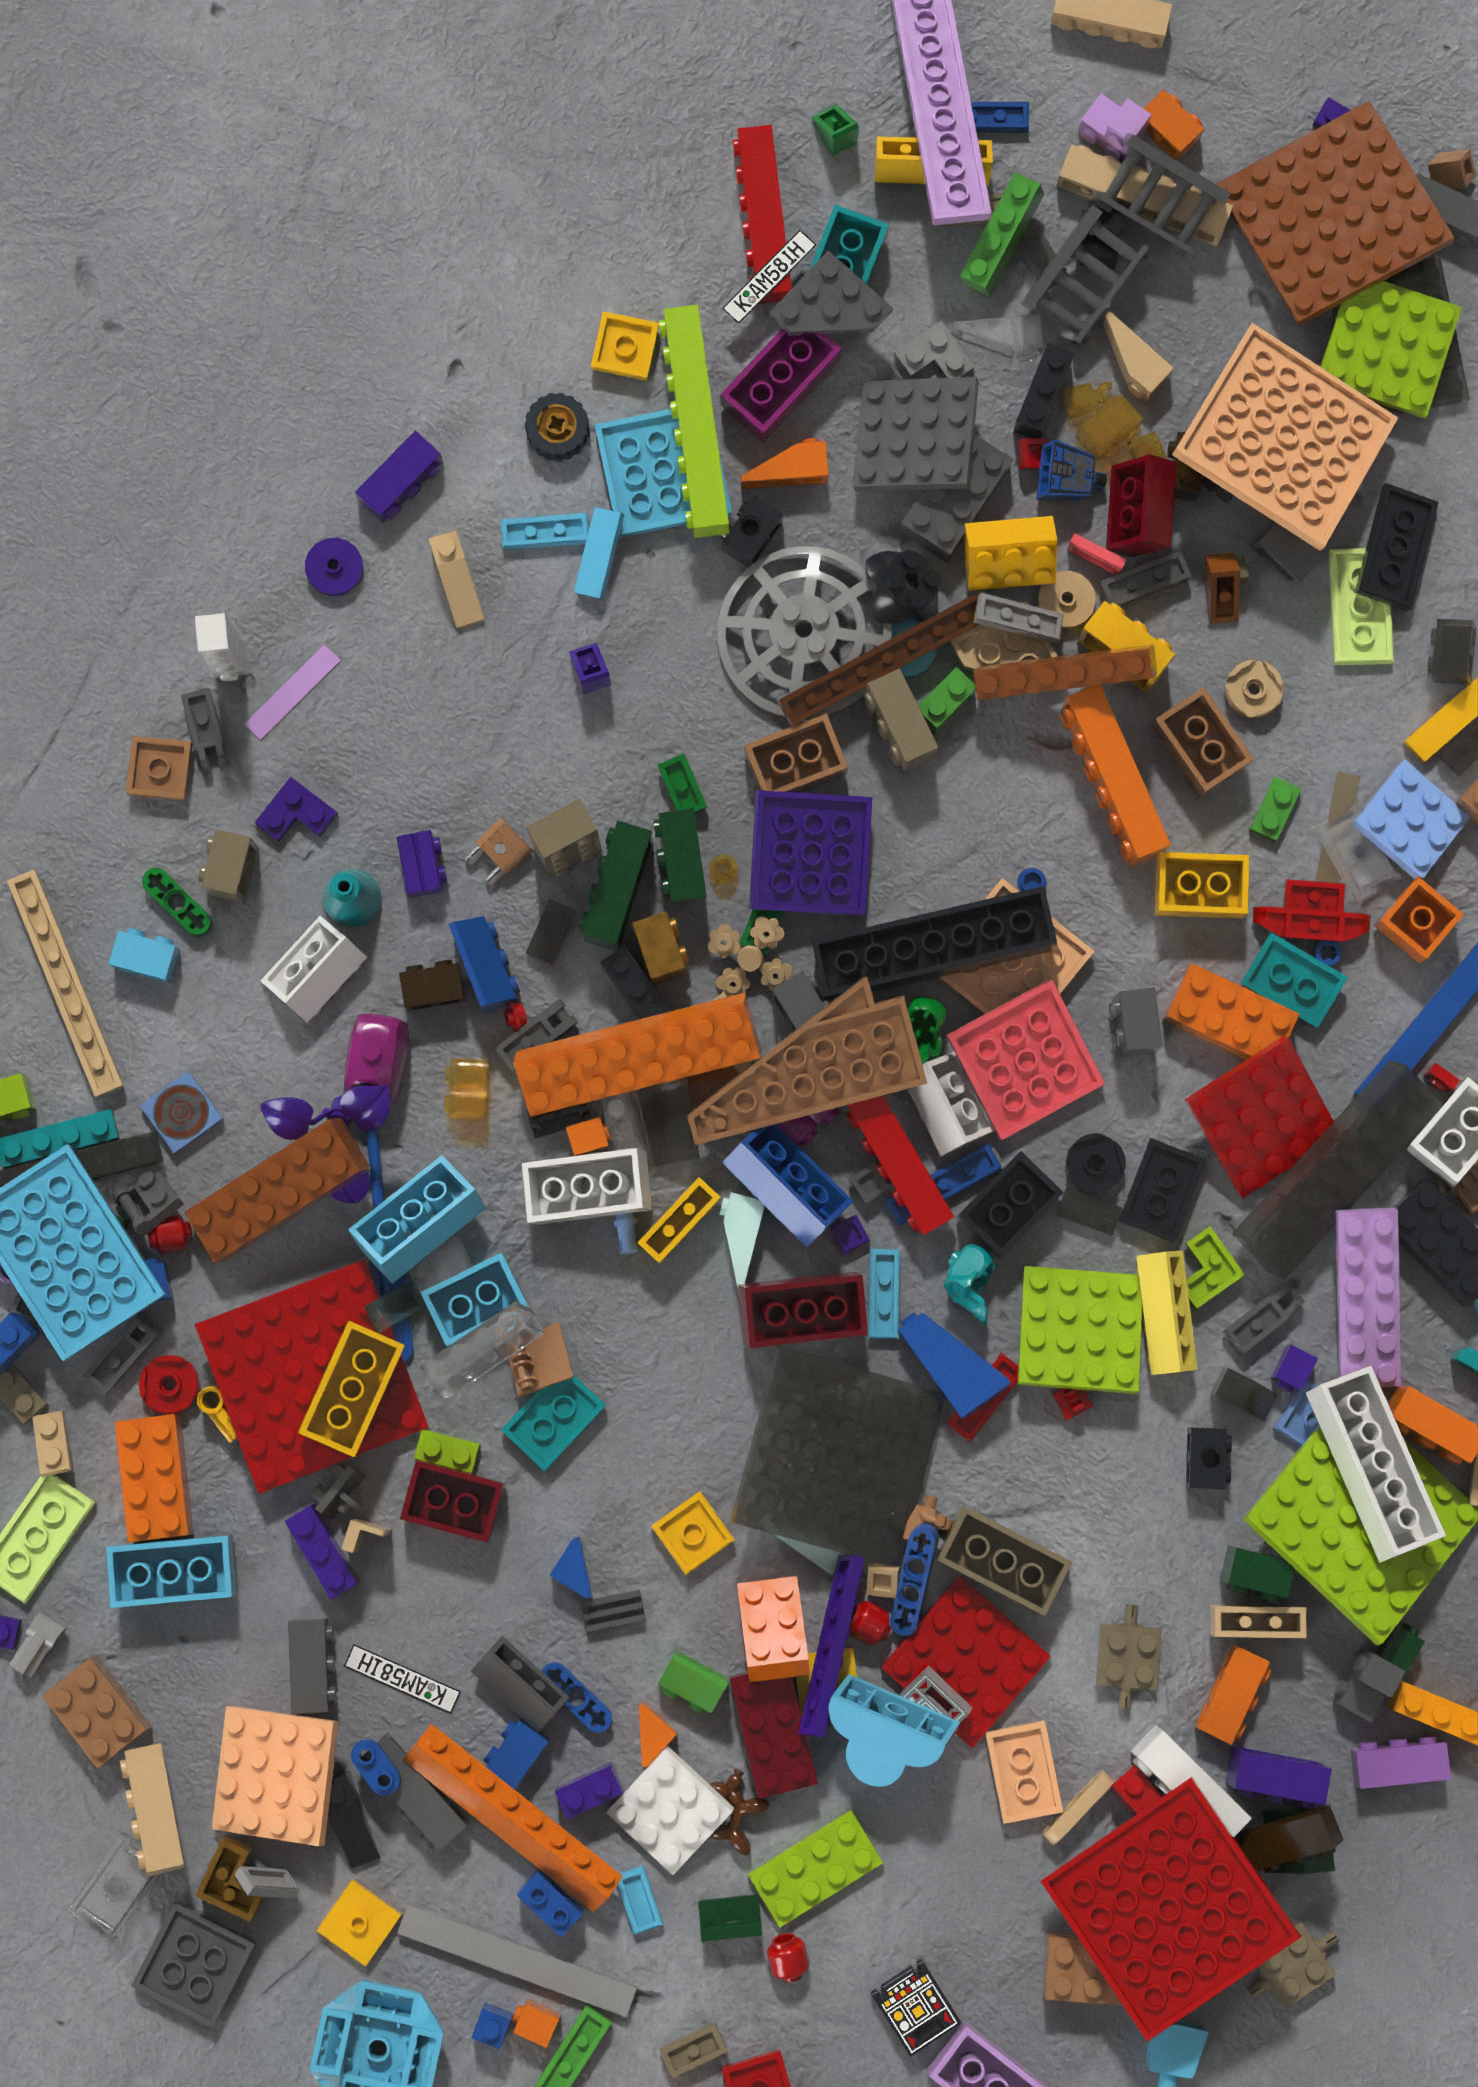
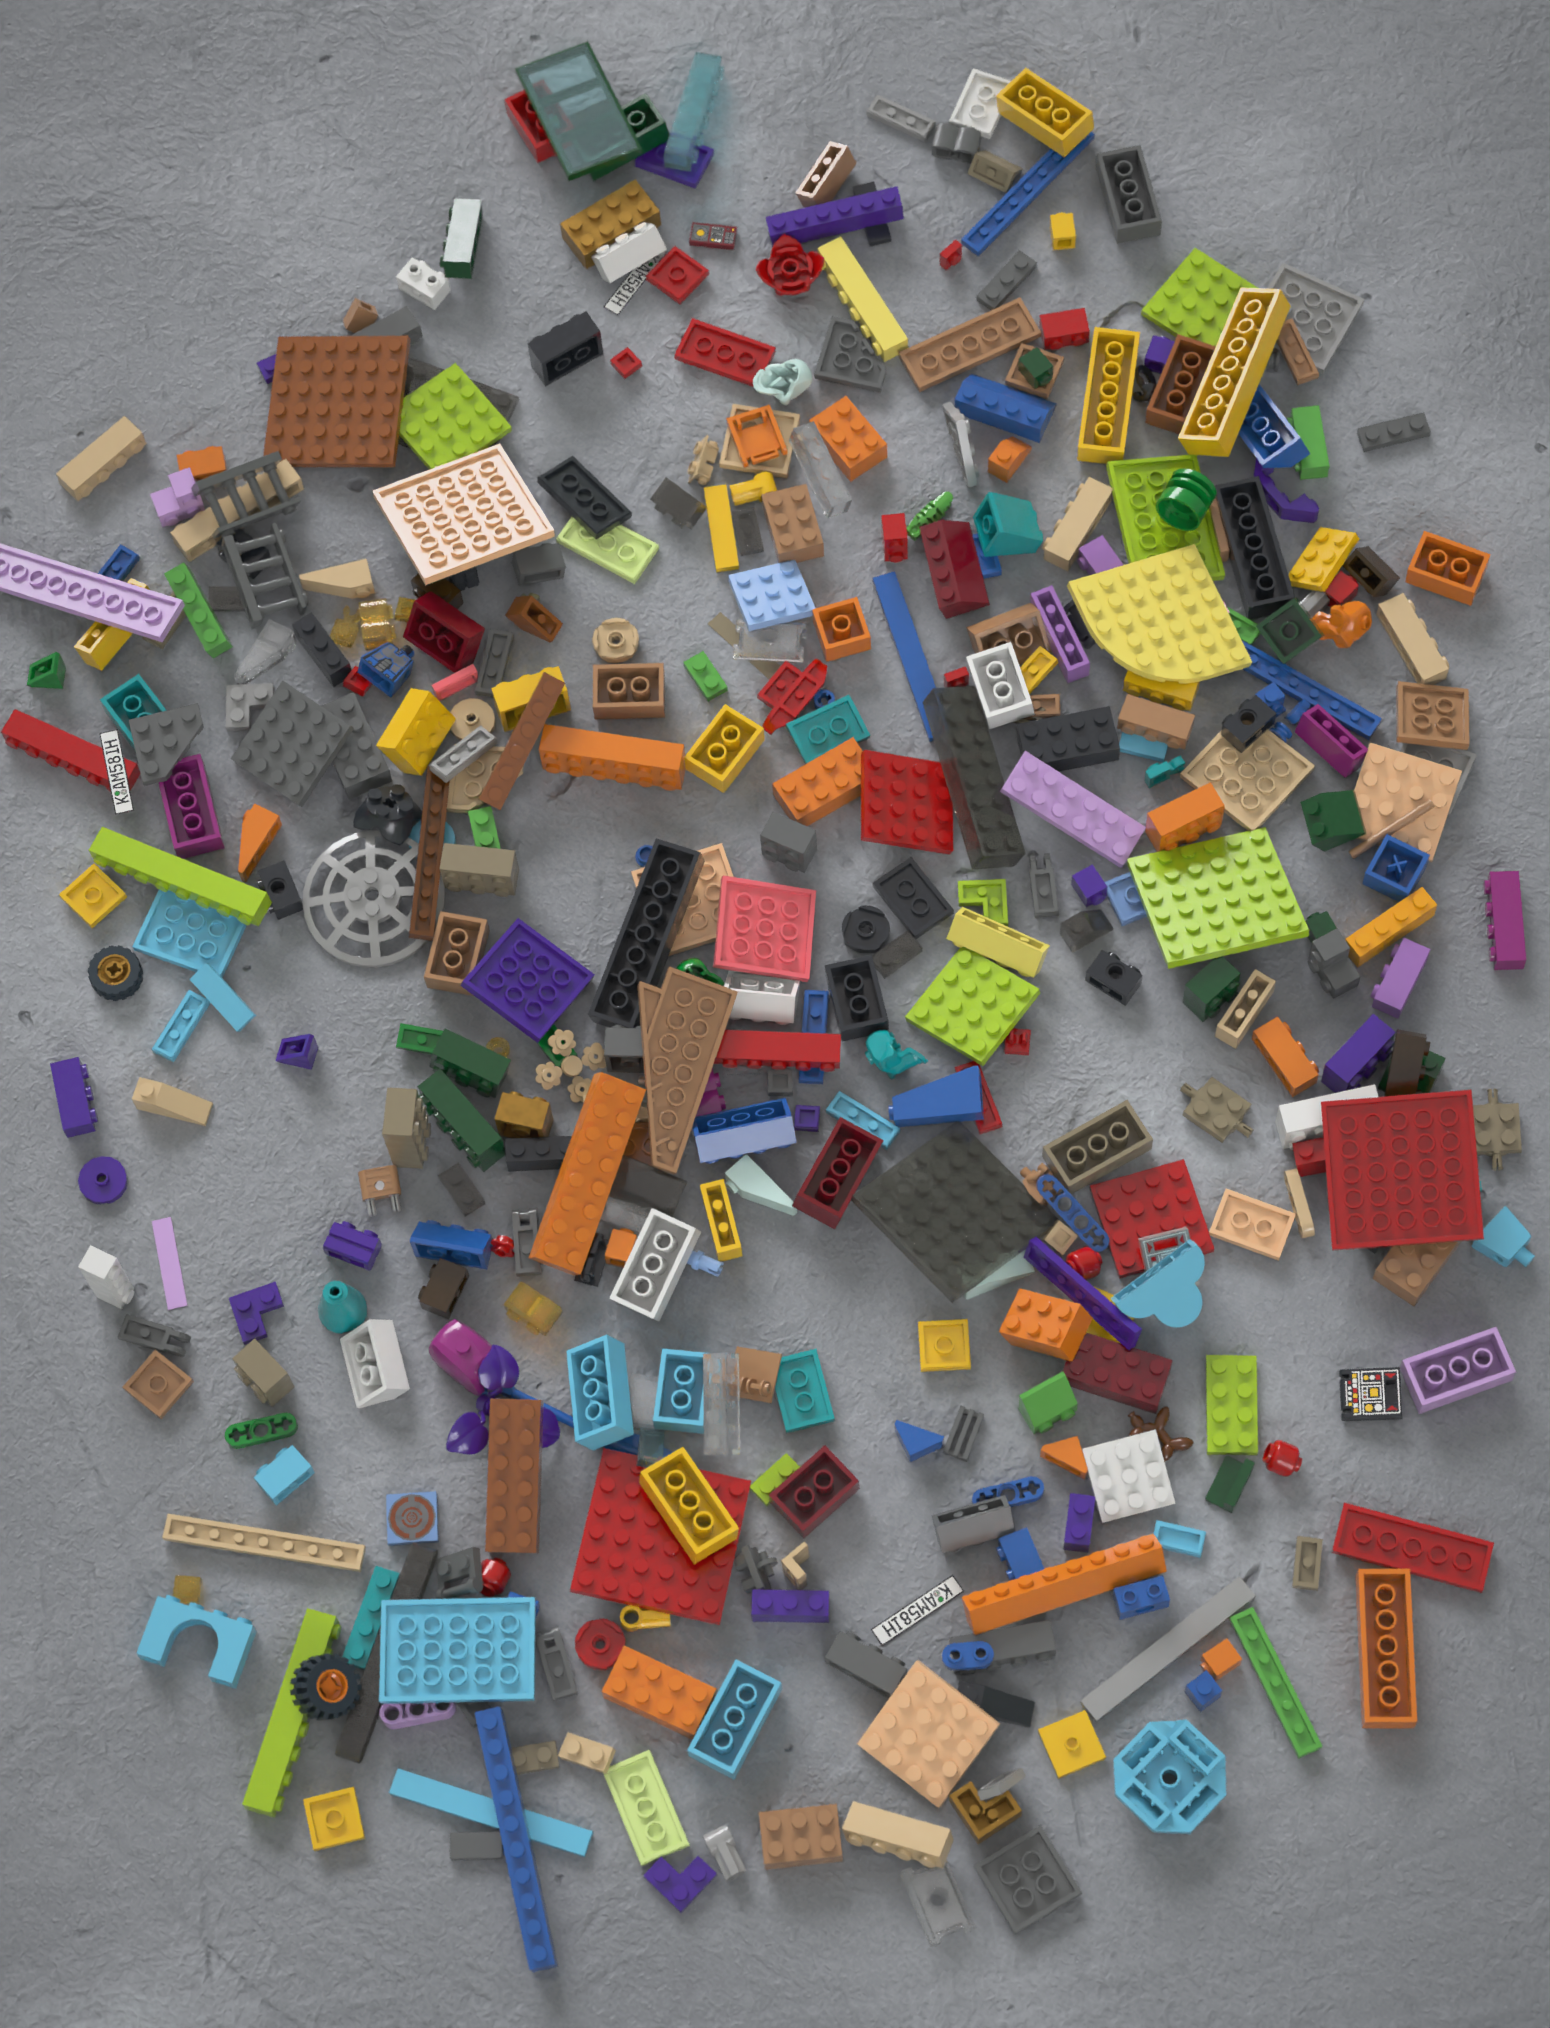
camera: 50 degrees left, 15 degrees down
(1375, 1464) = (1185, 864): white brick -> none

